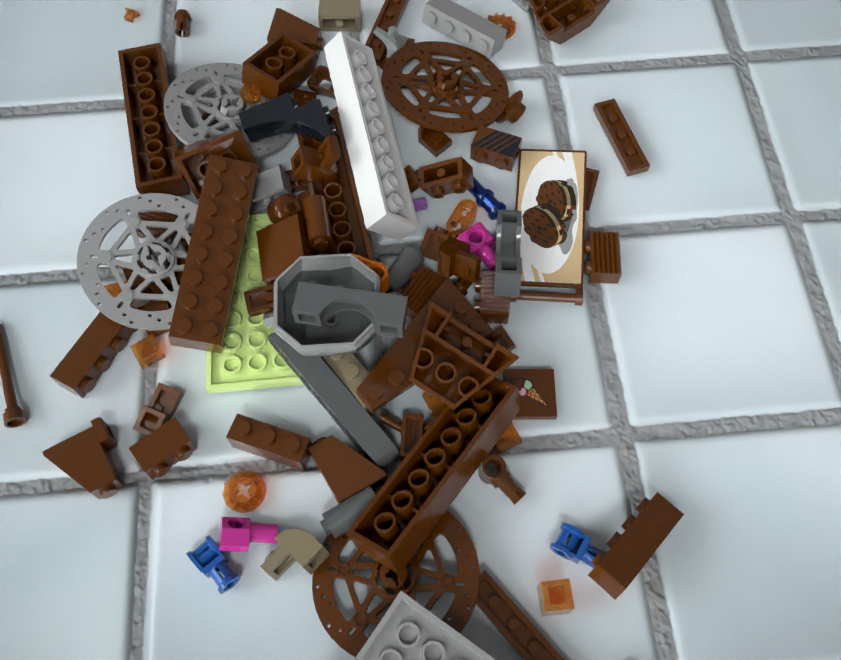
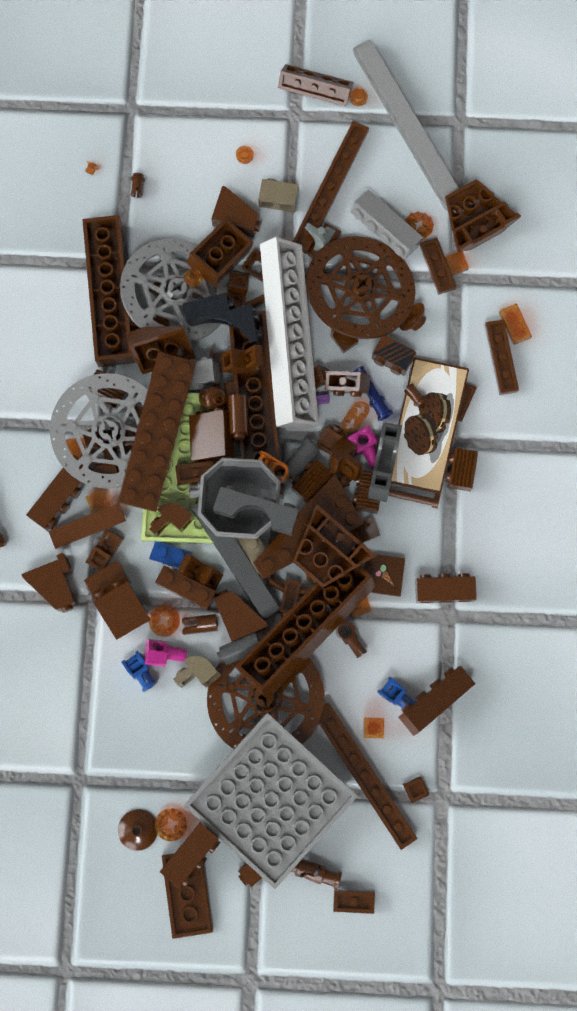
camera: 10 degrees right, 15 degrees up
(133, 381) = (87, 525): none -> reddish brown slope
(180, 477) = (120, 607): none -> reddish brown brick
(242, 350) = (173, 514): none -> reddish brown brick
(248, 405) = (168, 554): none -> blue plate
(279, 414) = (200, 572): none -> reddish brown brick
(293, 488) = (204, 623): none -> reddish brown hinge
(528, 61) = (437, 266): none -> reddish brown tile
(533, 186) = (418, 399): none -> reddish brown pin
(548, 56) = (457, 263): none -> clear orange plate
(614, 399) = (445, 588): none -> reddish brown brick
(629, 103) = (515, 324): none -> clear orange plate

